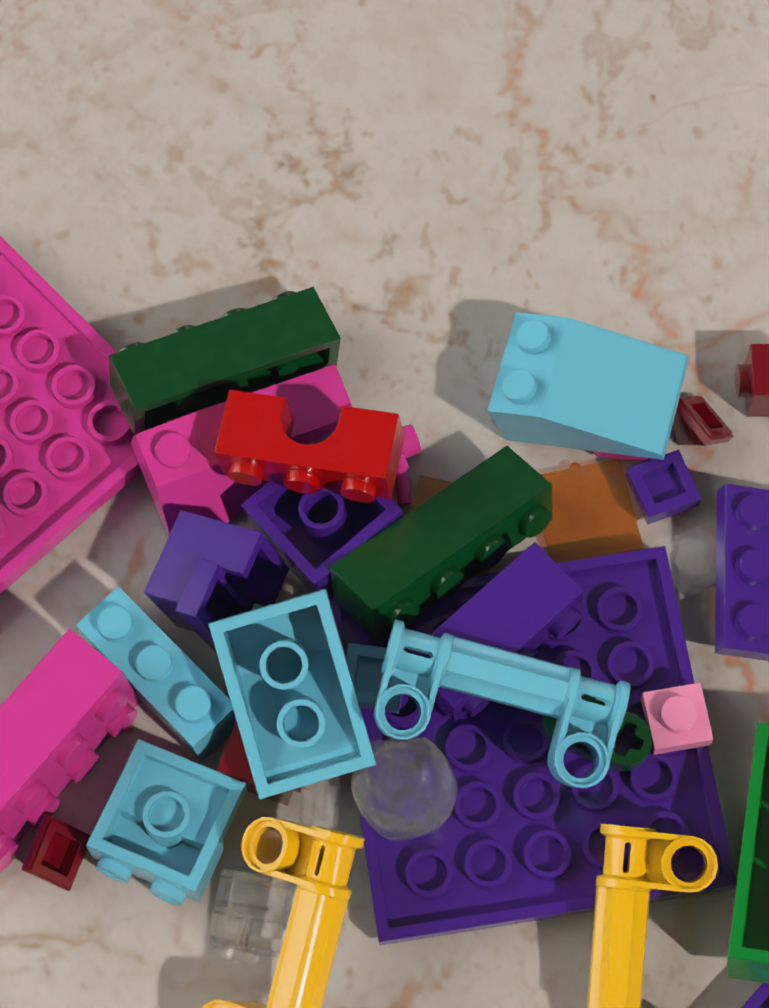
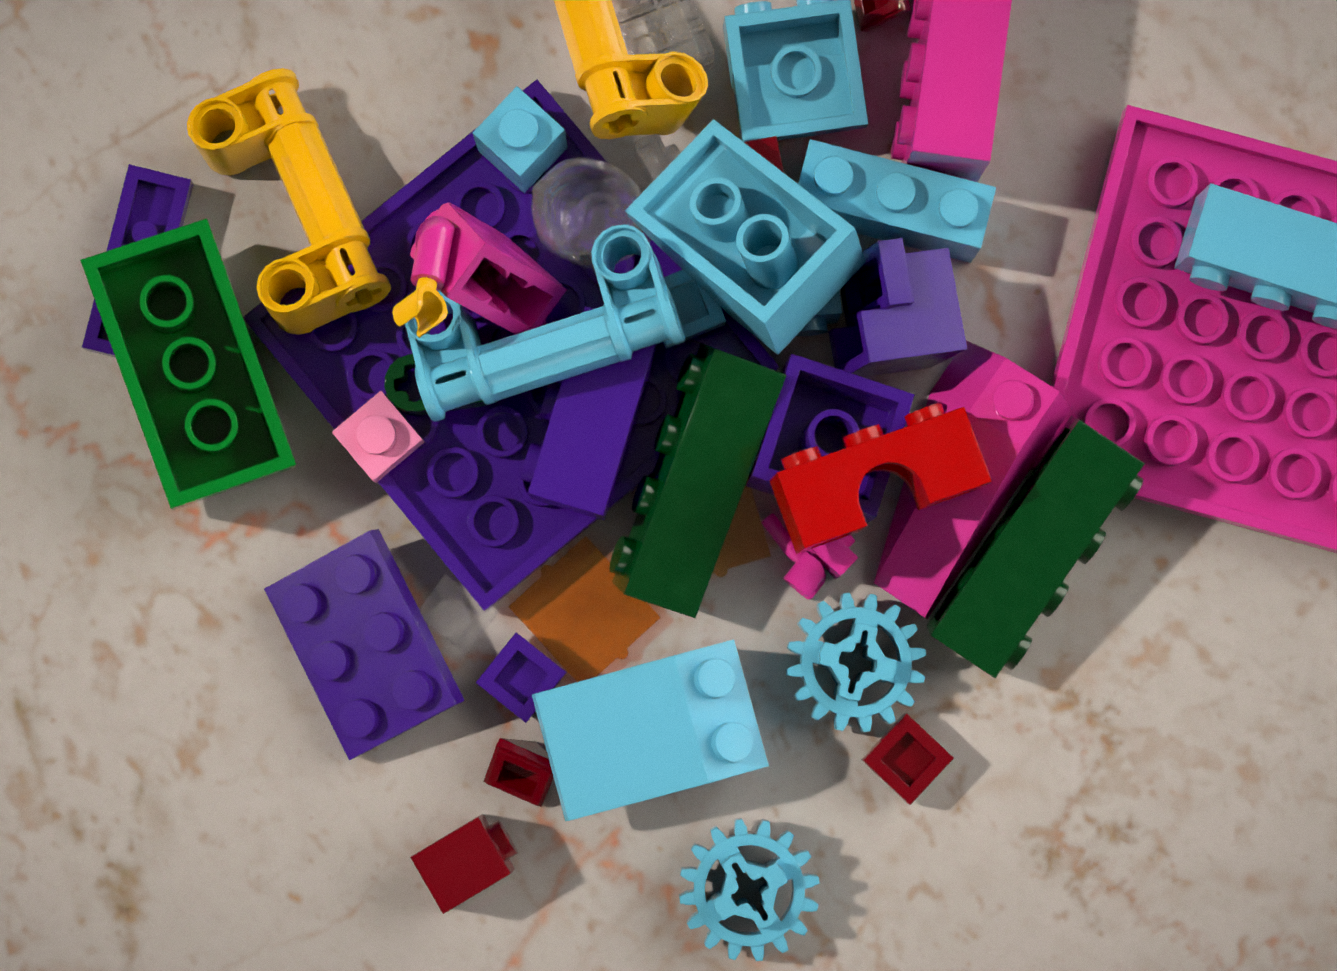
camera: 140 degrees right, 15 degrees up
(405, 383) = (882, 669): none -> medium azure gear
(410, 280) = (907, 758): none -> dark red plate
(425, 882) = (520, 139): none -> medium azure brick
(527, 782) = (477, 271): none -> dark pink torso
(553, 260) = (722, 905): none -> medium azure gear

